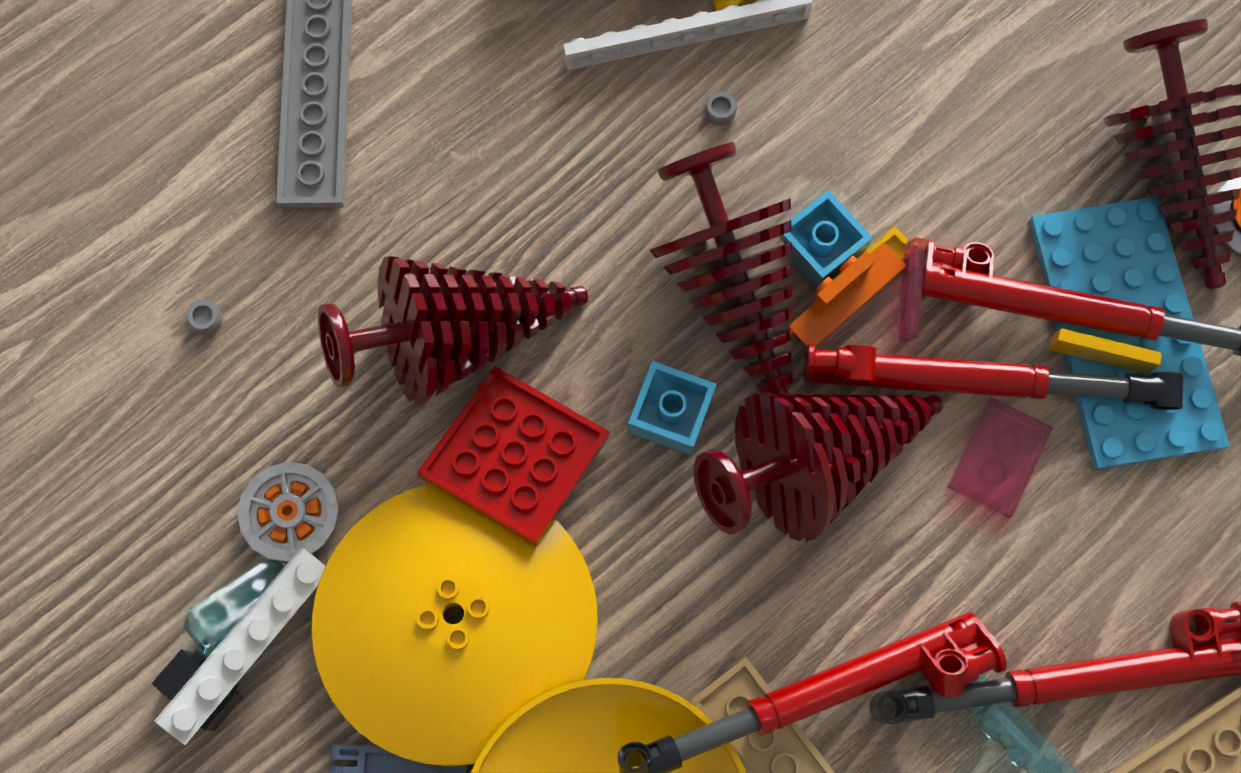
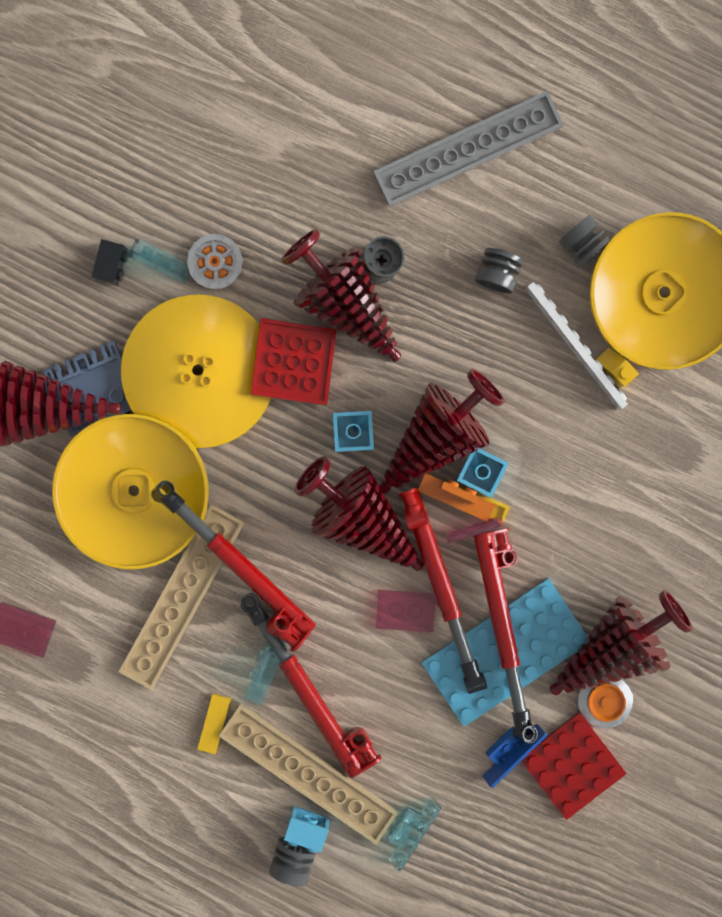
camera: 65 degrees right, 15 degrees up
(204, 317) = (296, 165): light grey tile -> none
(241, 647) = (138, 274): white plate -> none
(419, 234) = (389, 253): none -> dark grey wheel
(521, 84) = (500, 266): none -> dark grey wheel
(720, 108) = (538, 384): light grey tile -> none
(1104, 351) = (483, 643): yellow tile -> none

